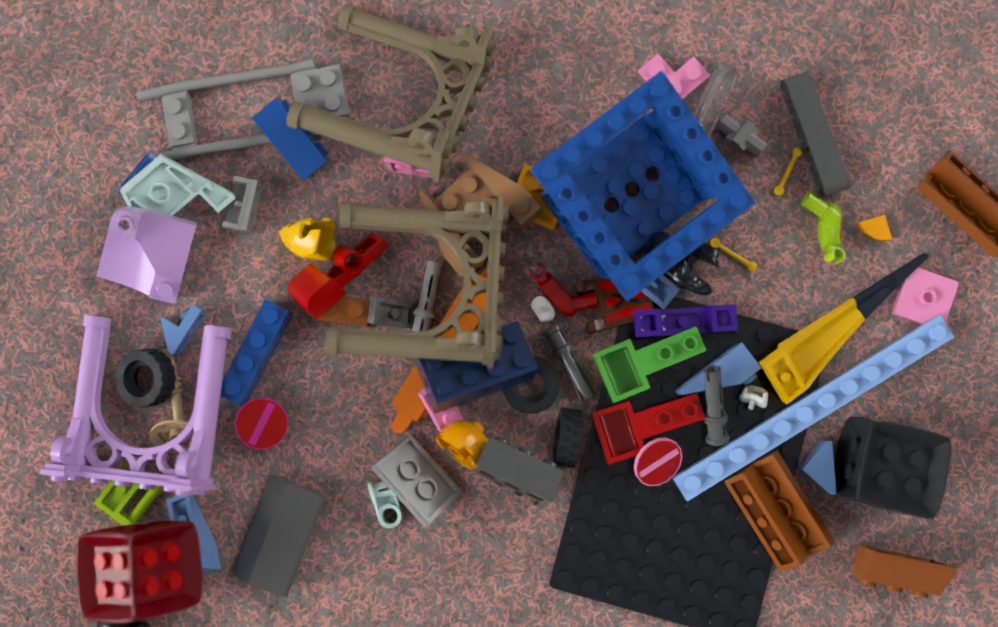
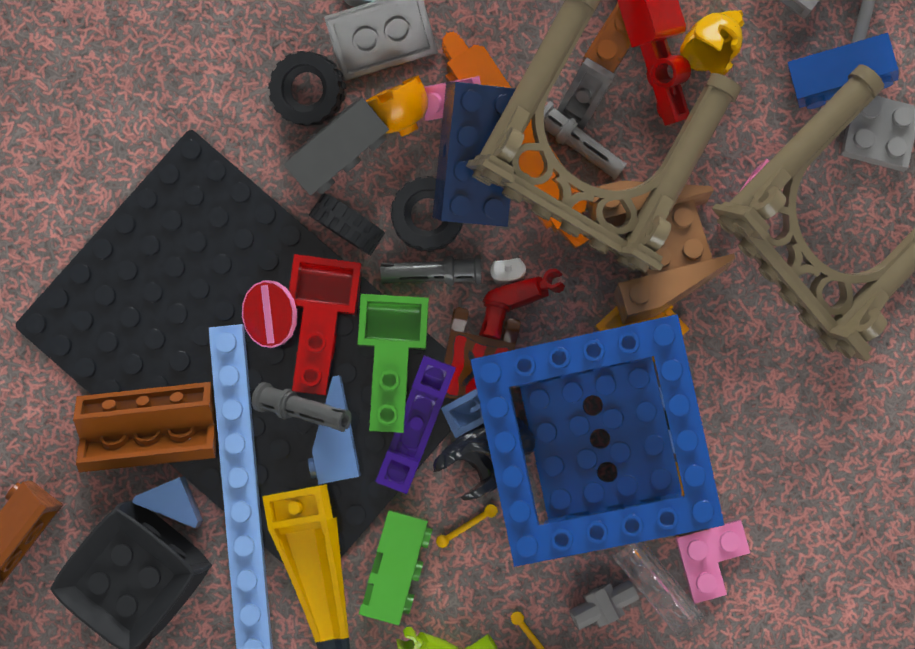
camera: 115 degrees right, 0 degrees up
(498, 526) = (281, 88): none -> black tyre
(754, 396) = (290, 464): white piece -> none
(790, 288) = (395, 567): none -> bright green wedge

